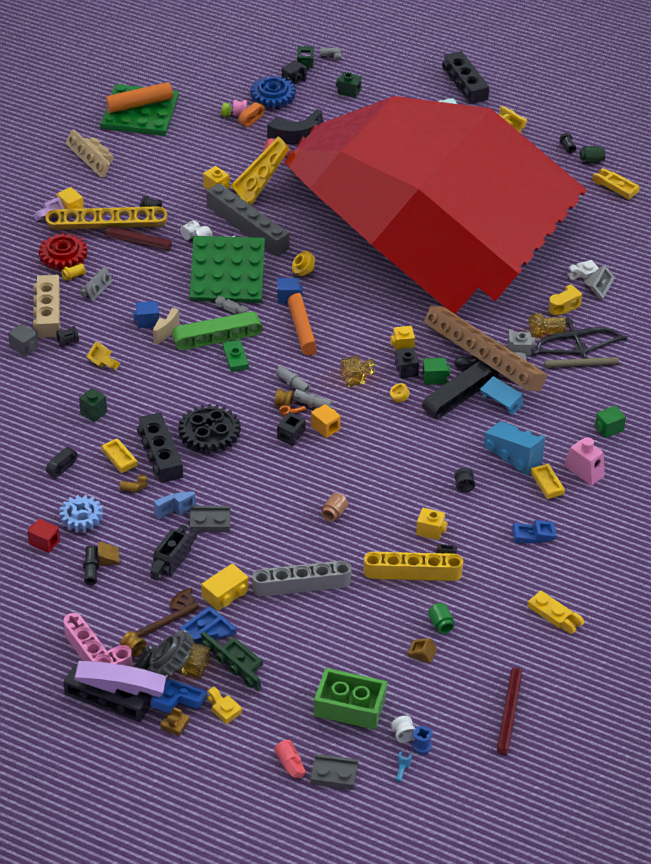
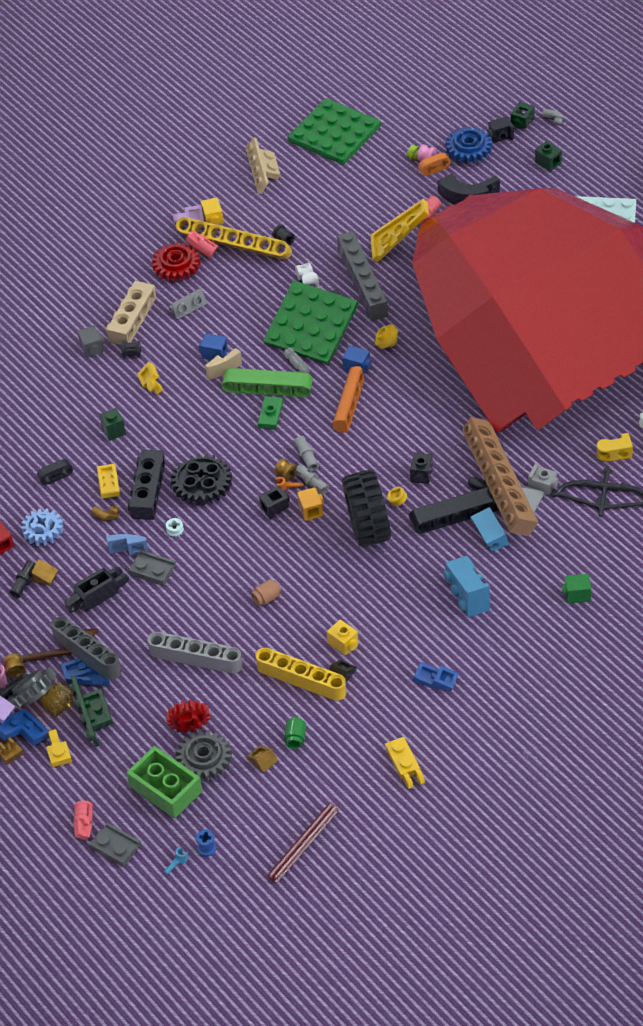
camera: 30 degrees right, 5 degrees up
(69, 273) = (170, 285): yellow pin -> none
(80, 229) = (202, 244): none -> coral hinge
(138, 238) = (253, 266): dark red axle -> none
(139, 97) = (333, 119): orange brick -> none
(199, 604) = (86, 648): none -> dark grey beam
(206, 481) = (174, 532): none -> light aqua bush
(215, 176) = (359, 224): yellow brick -> none
(225, 587) = (124, 637): yellow brick -> none
(337, 633) = (188, 716): none -> red gear
(355, 371) = (367, 459): clear yellow brick -> none
(371, 661) = (205, 754): none -> dark grey gear
(391, 404) = (366, 508): none -> black tyre
(402, 338) = (431, 443): yellow brick -> none
(403, 729) = (195, 824): white wheel -> none
(435, 371) = (442, 484): green brick -> none
(464, 479) = (401, 603): black wheel -> none
(541, 325) = (575, 466): clear yellow piece -> none
(547, 481) = (479, 630): yellow plate -> none
(581, 362) = (592, 517): dark tan bar -> none
(586, 461) = (521, 616): bright pink torso -> none

